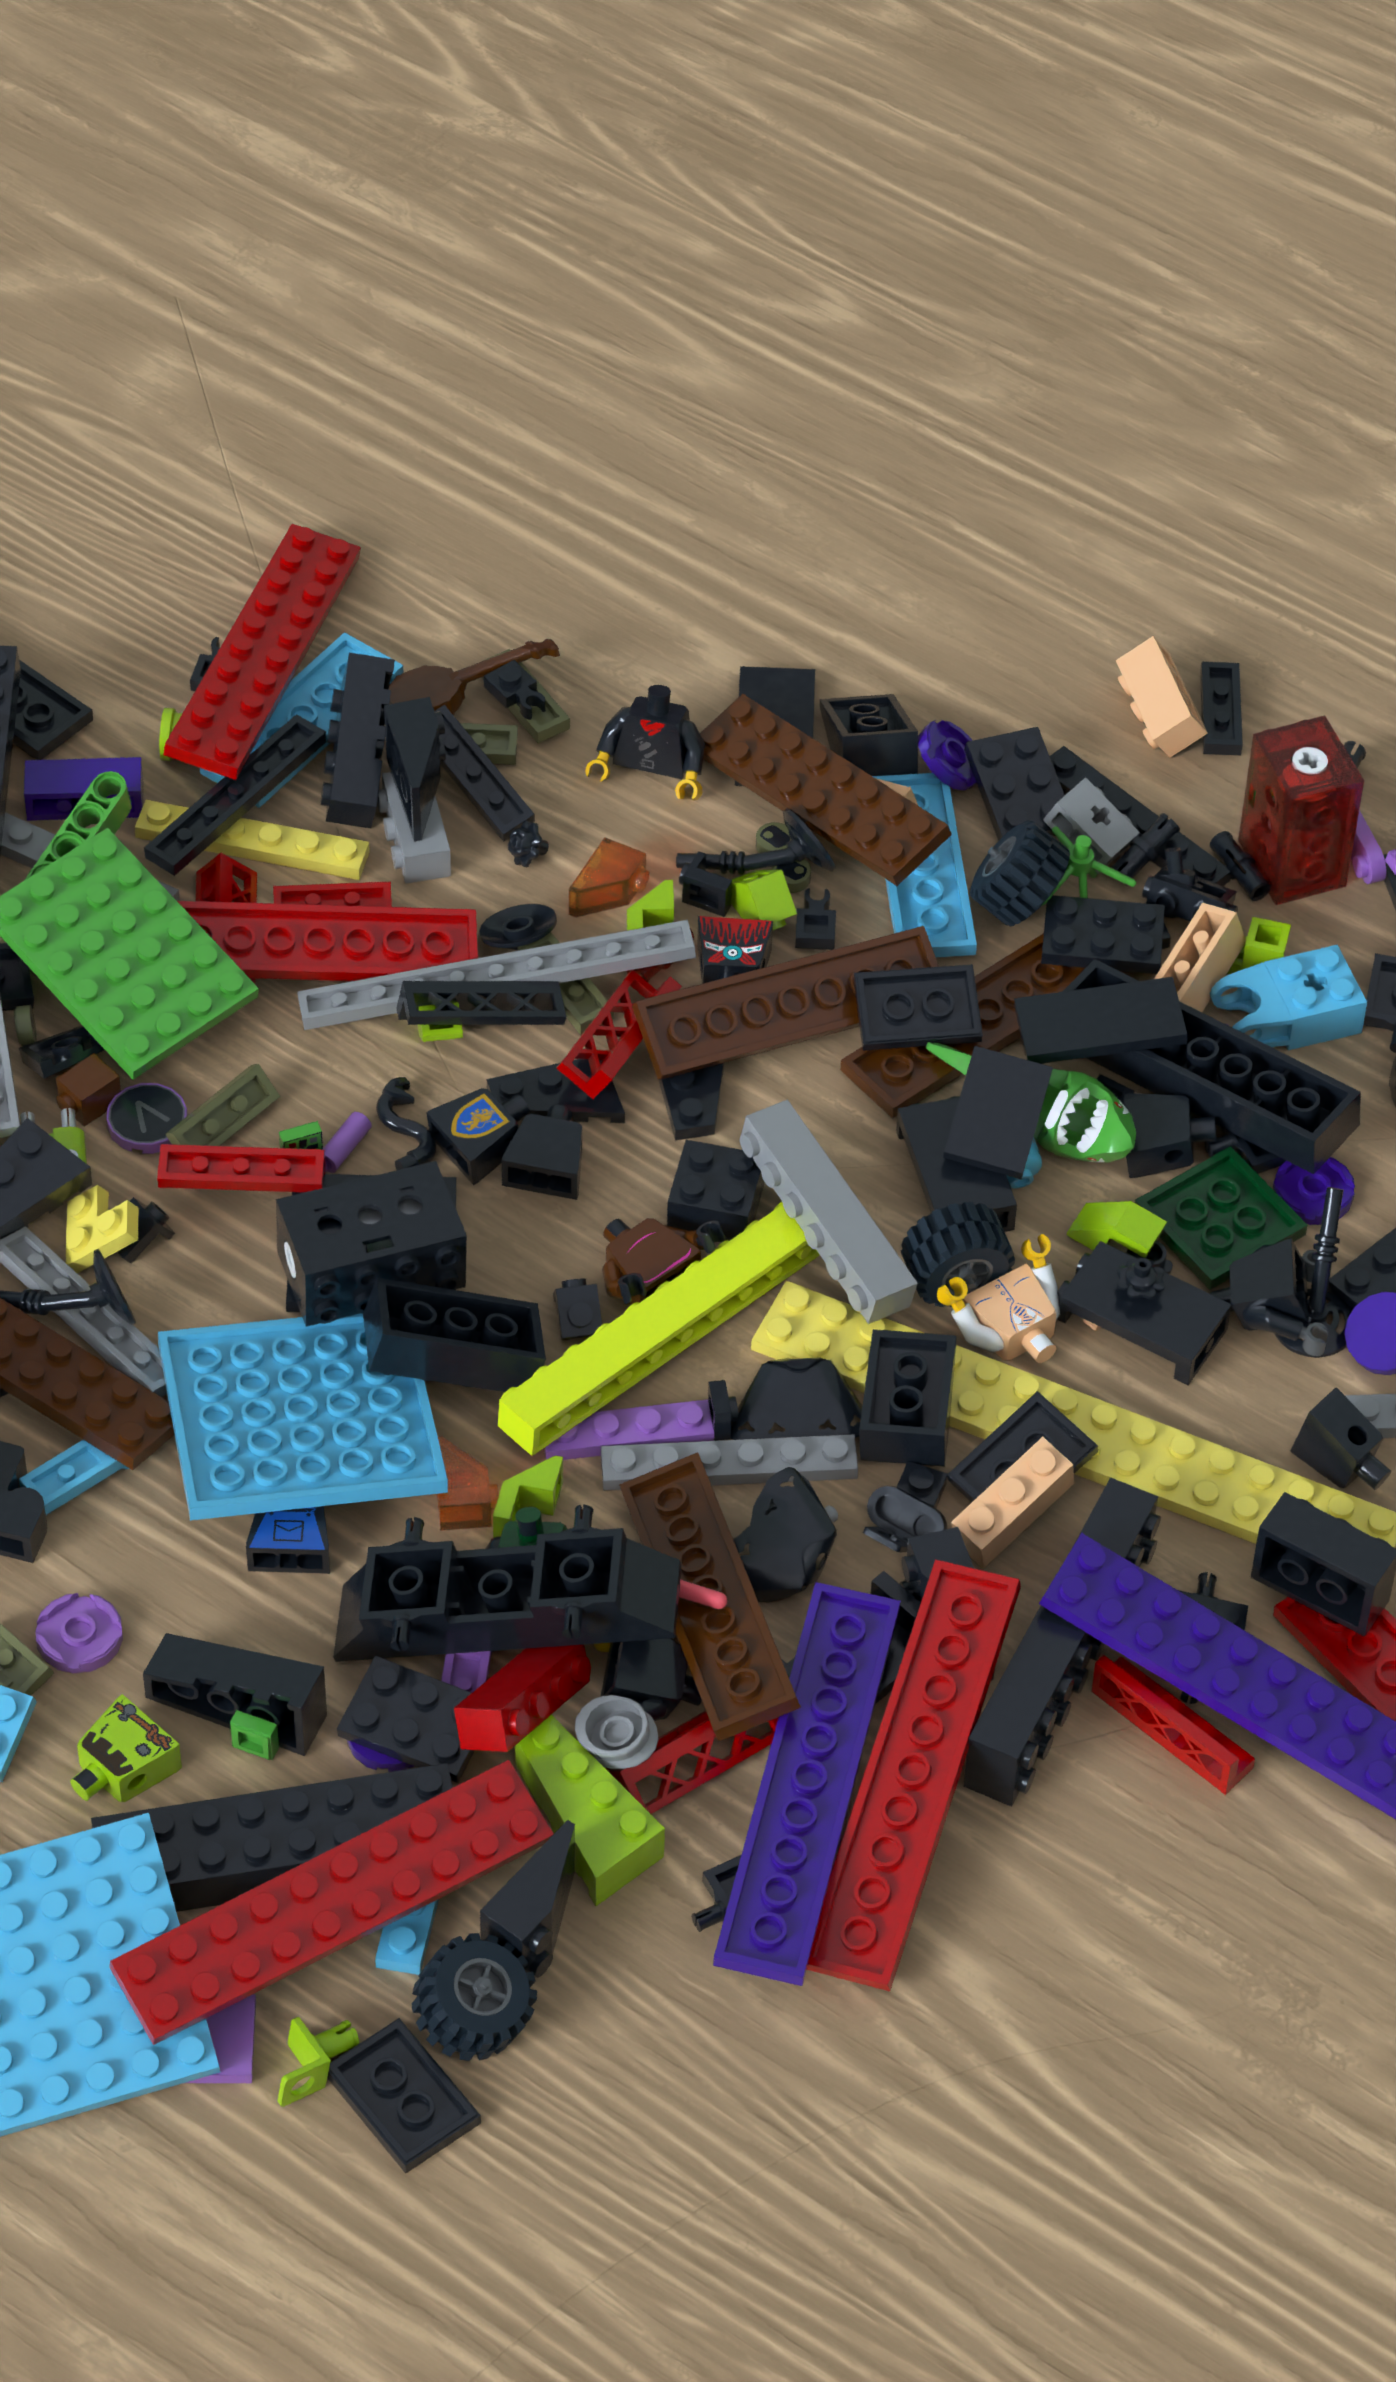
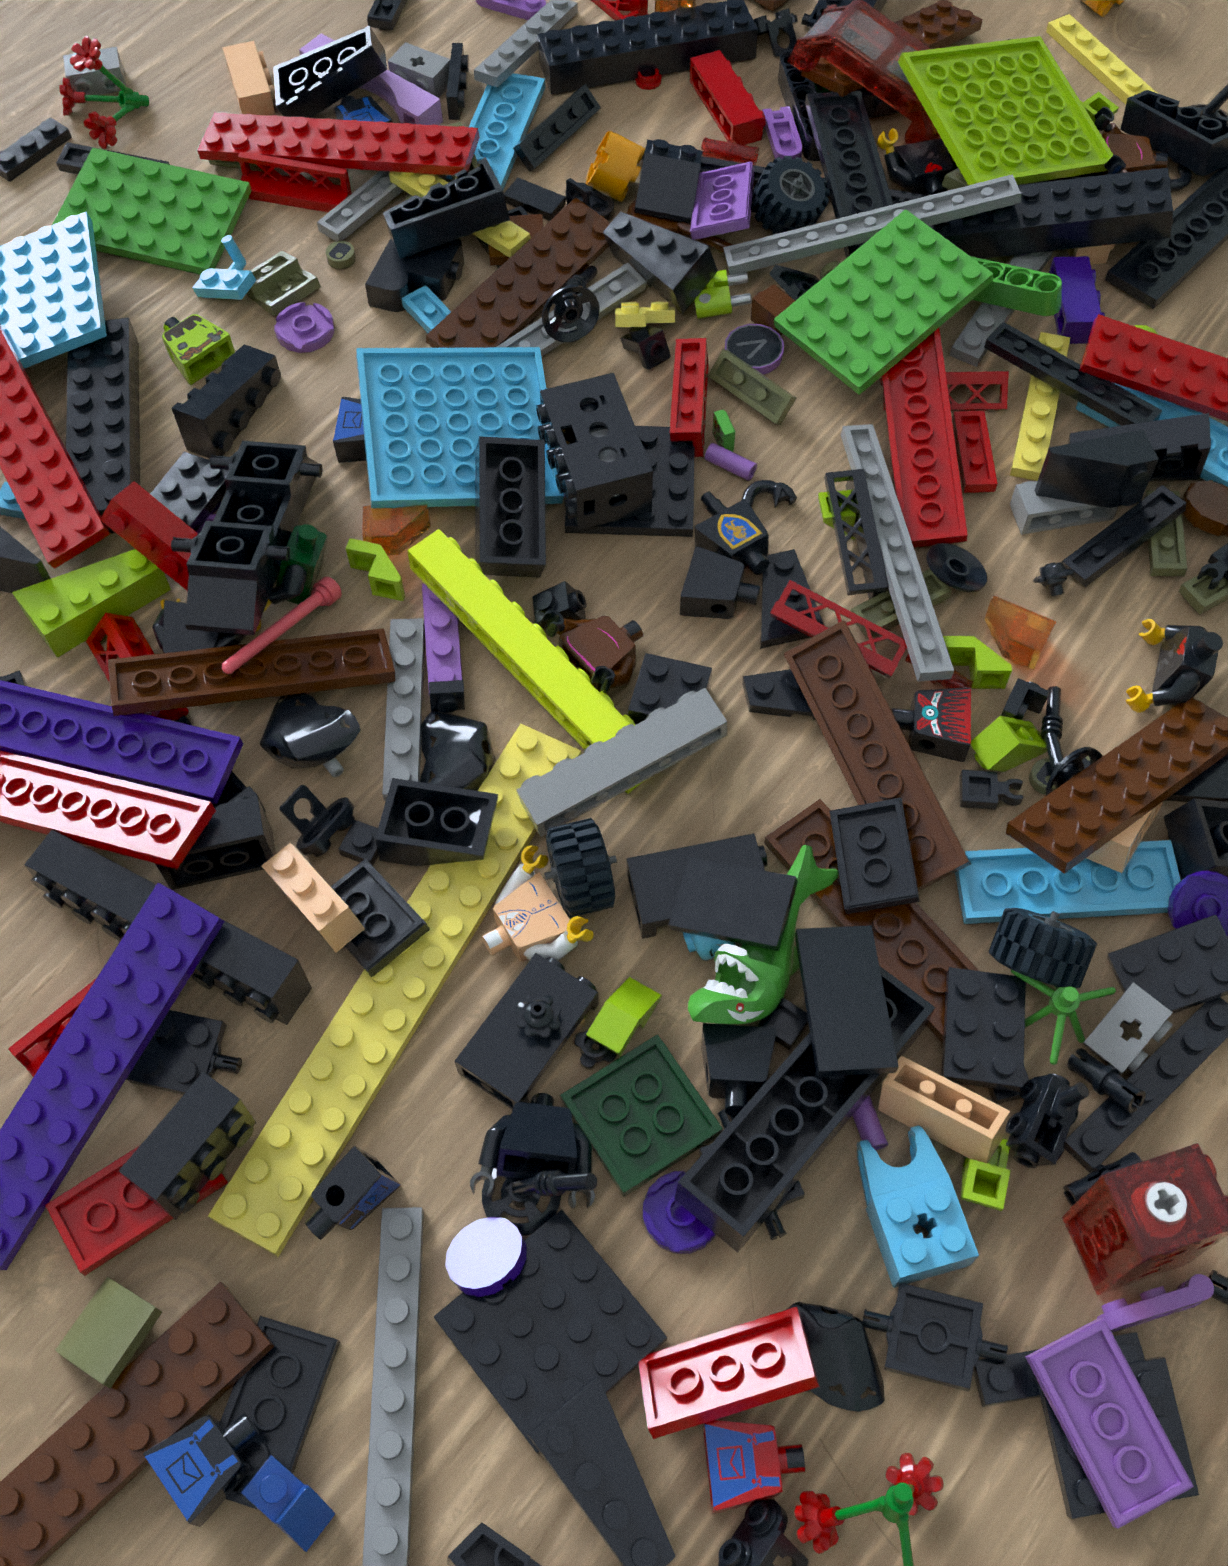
camera: 95 degrees right, 10 degrees up
(616, 1731) = (133, 606): light grey piece -> none

